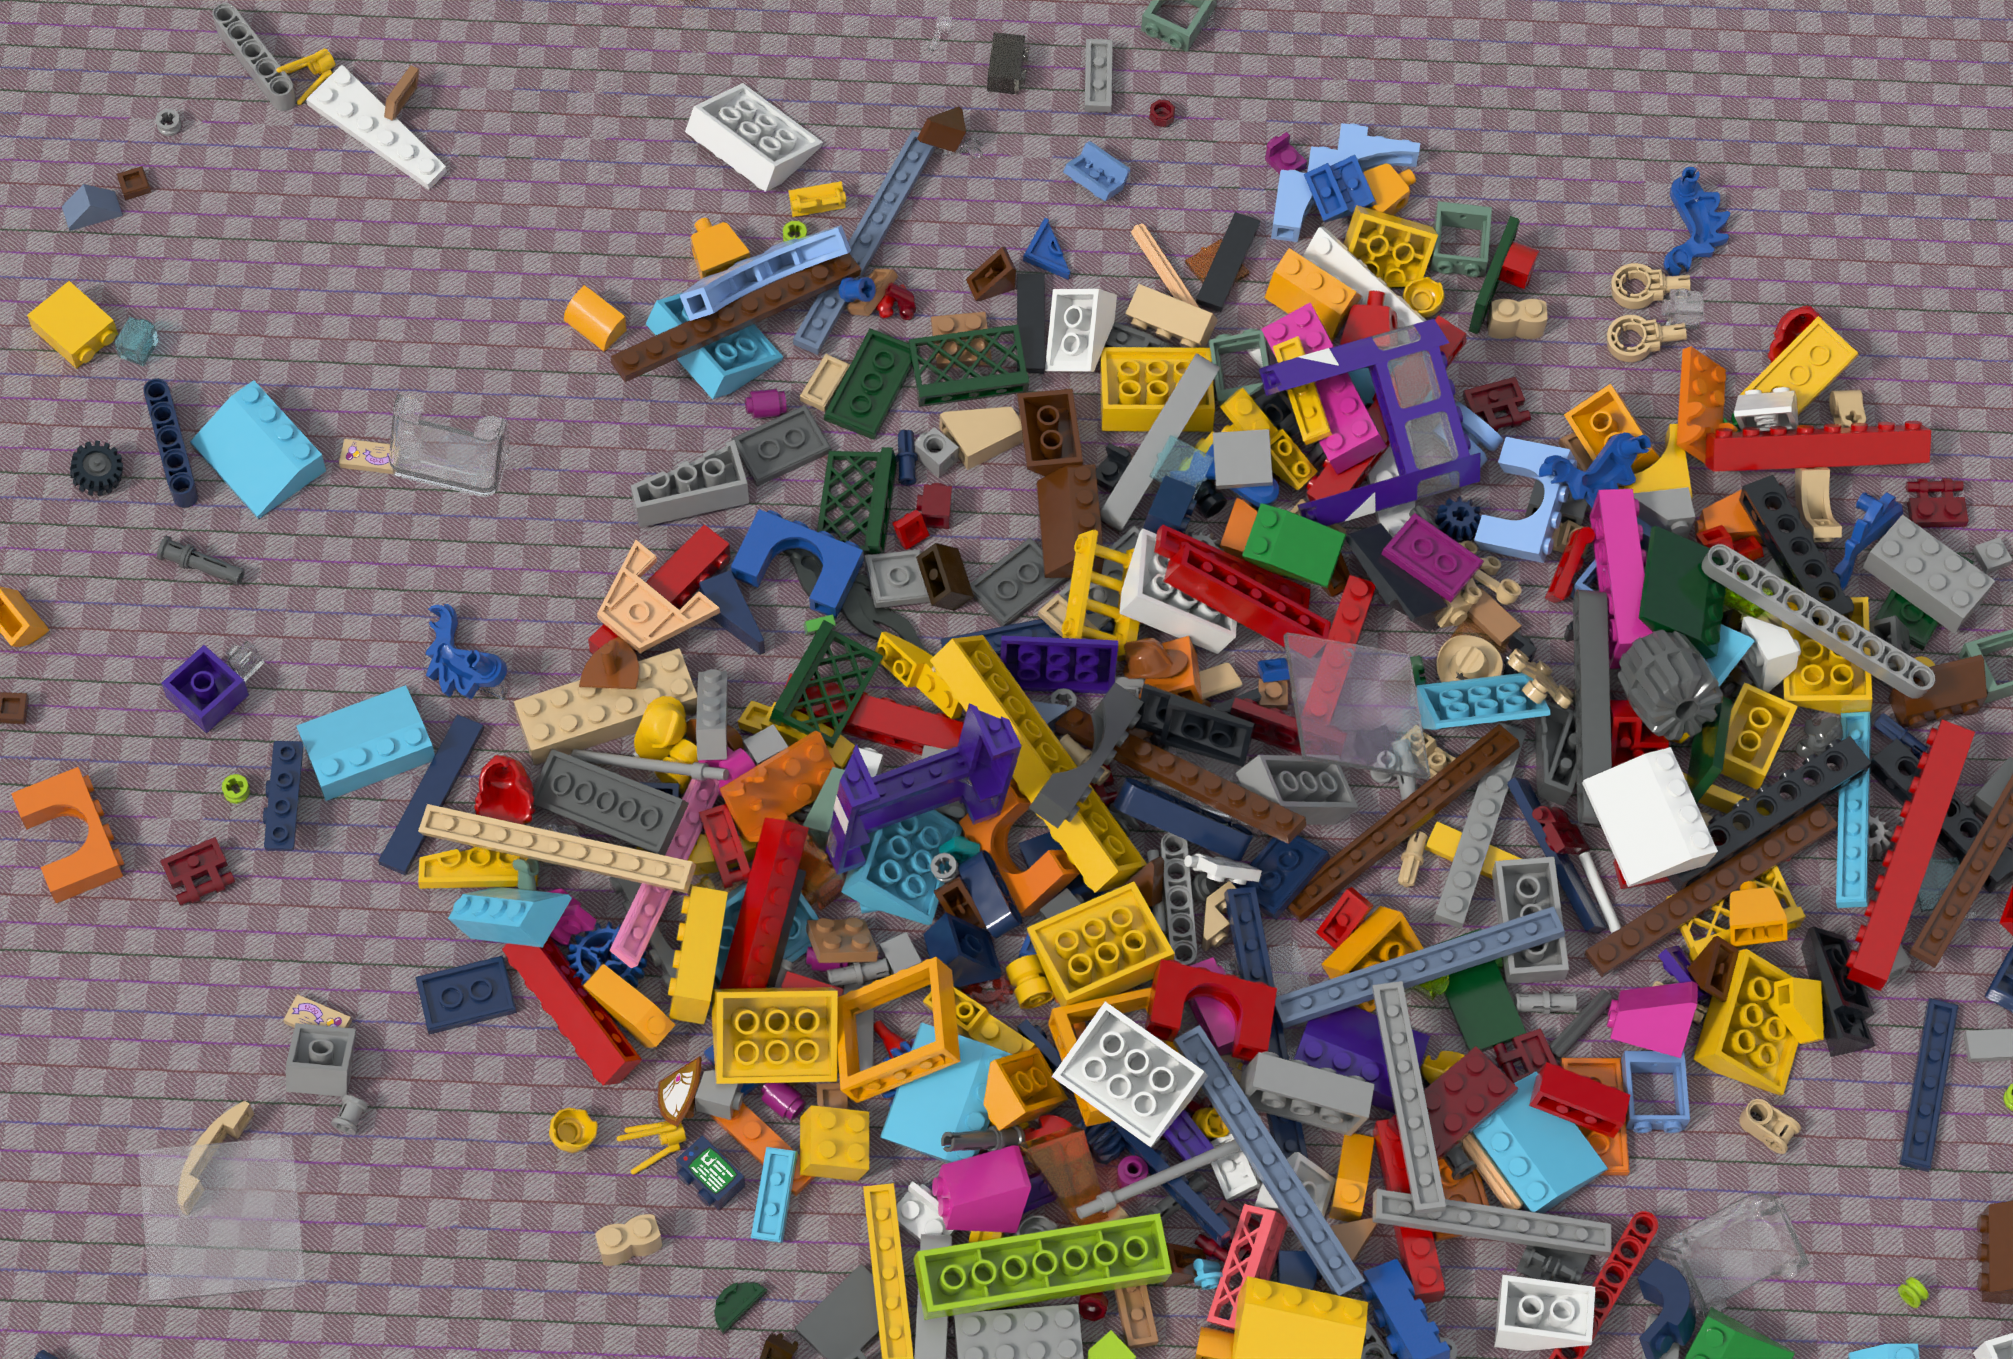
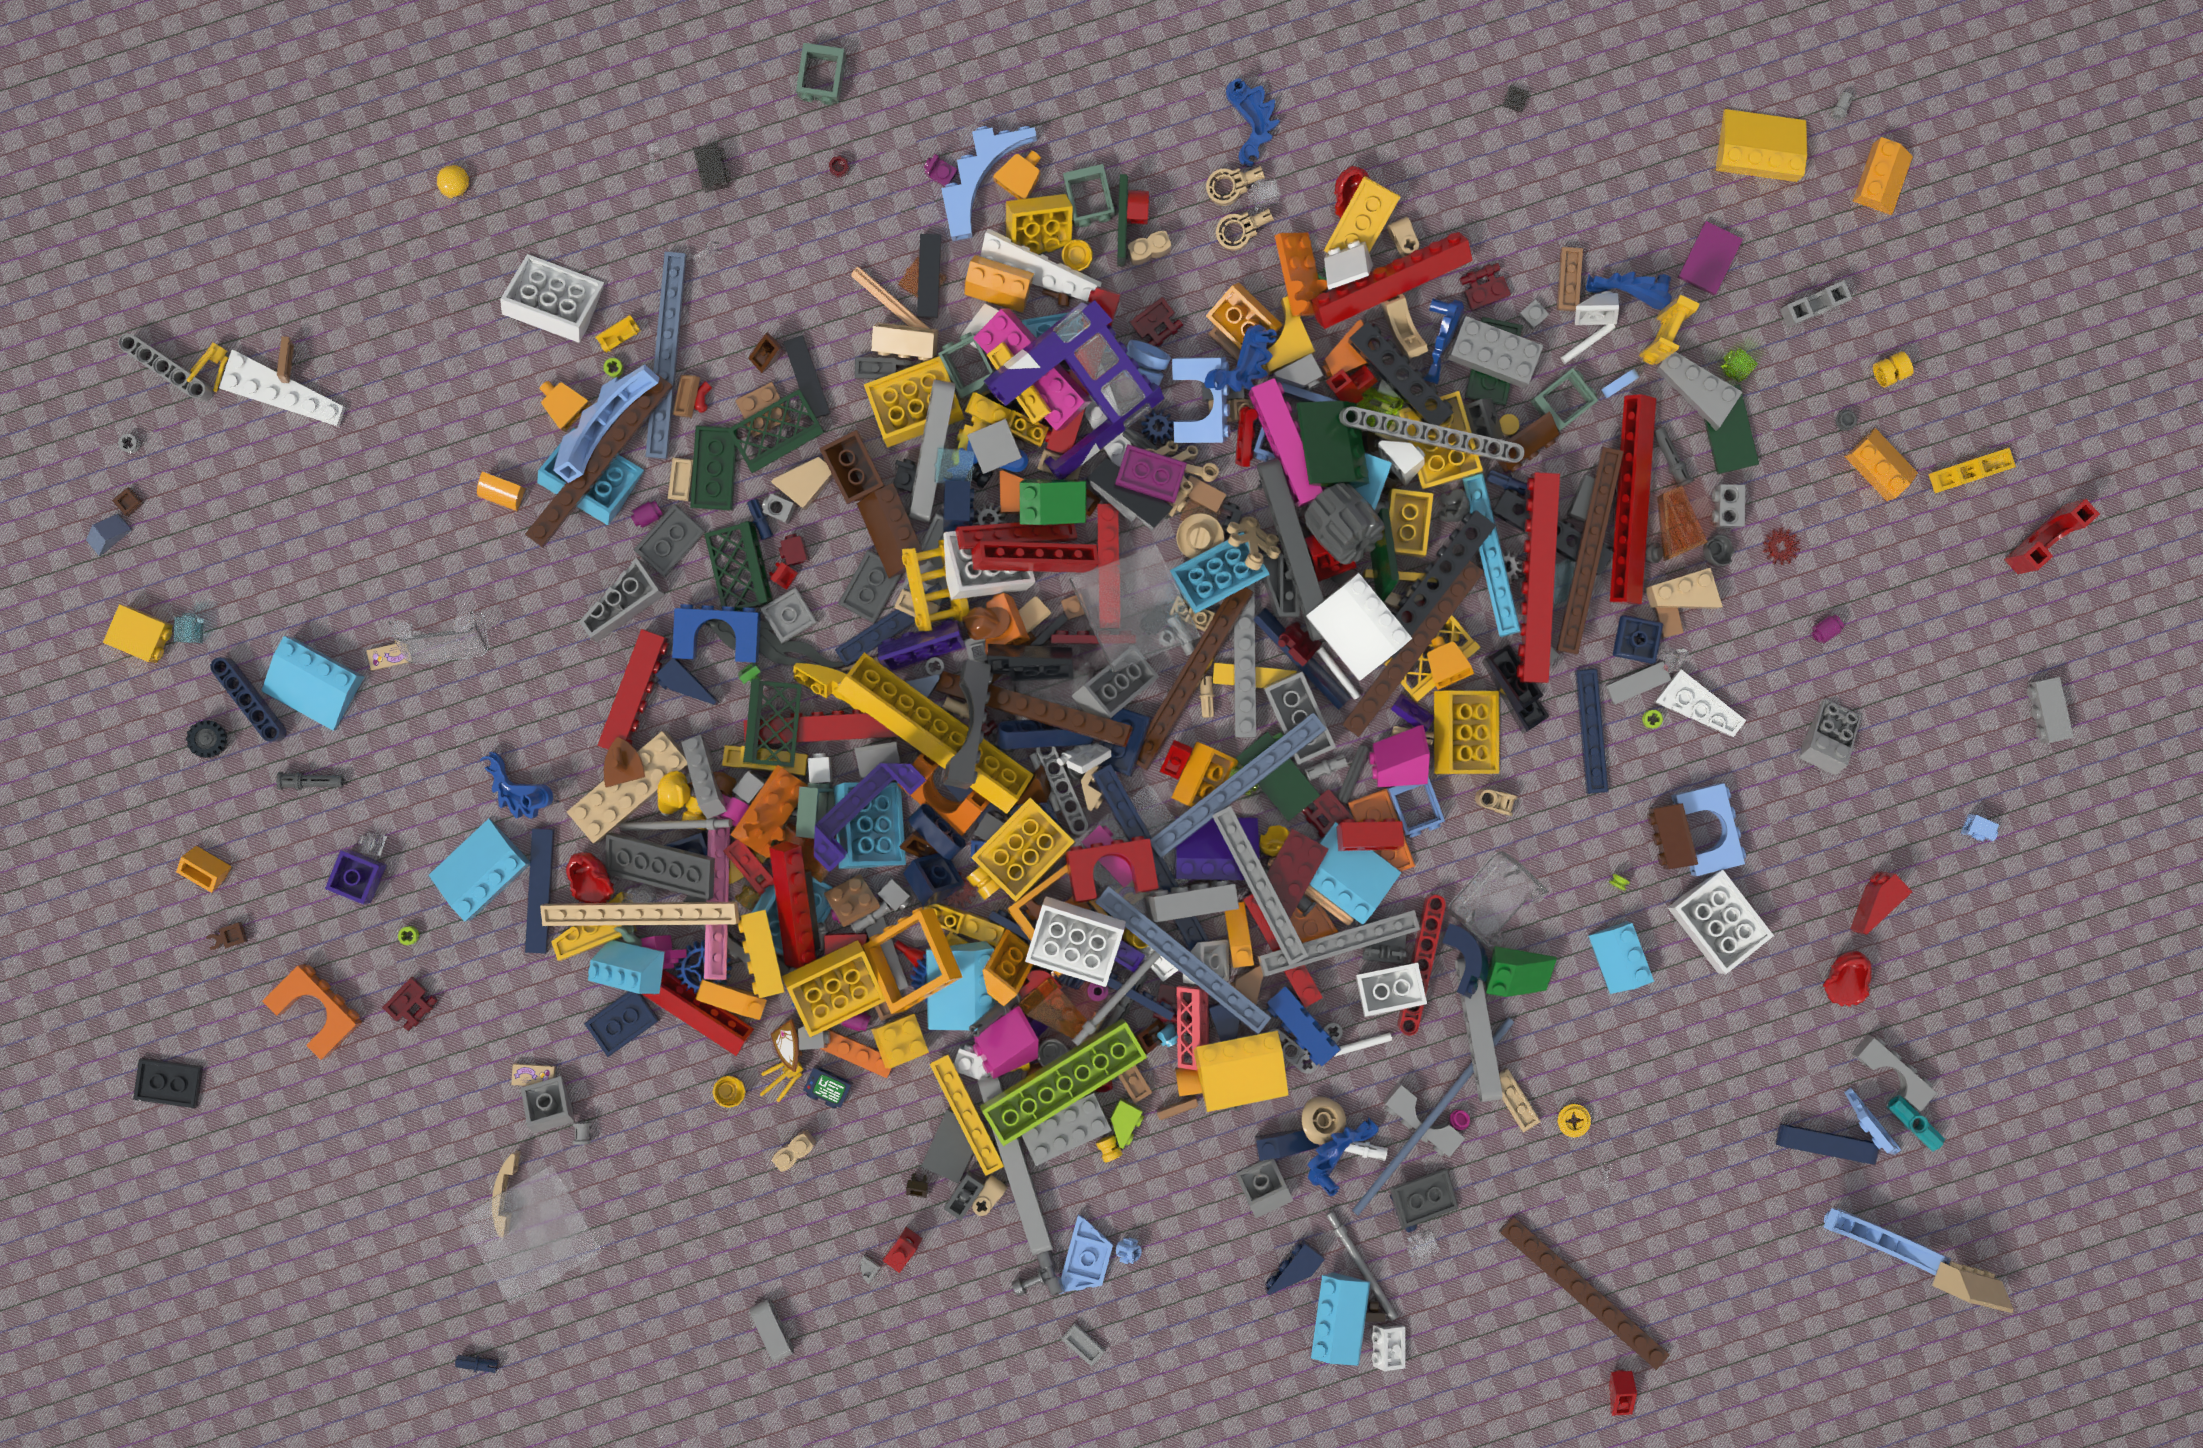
camera: 20 degrees left, 25 degrees up
(283, 796) = (442, 936): dark blue bracket -> none
(640, 612) = (625, 716): light nougat wing -> none
(736, 1302) = (877, 1162): dark green tile -> none
(774, 1195) = (874, 1086): medium azure tile -> none
(861, 289) = (675, 403): blue bush -> none
(904, 298) = (710, 393): dark red arm -> none
(942, 858) = (895, 828): light grey bush -> none
(944, 130) = (689, 245): reddish brown slope -> none
(944, 576) = (820, 605): dark brown brick -> none
(960, 848) = (904, 804): teal plate -> none
(1046, 252) = (796, 315): blue tile -> none
(1078, 328) = (843, 375): white slope -> none
(1098, 75) = (781, 151): light grey plate -> none
(1098, 172) = (810, 236): medium blue bracket -> none
(1273, 670) = (1066, 591): blue tile -> none
(1339, 188) = (989, 190): blue slope -> none
(1369, 319) = (1049, 298): red torso -> none
(1418, 668) = (1164, 557): dark green tile -> none
(1715, 968) = (1431, 711): reddish brown slope -> none
(1800, 1008) = (1495, 713): yellow slope -> none

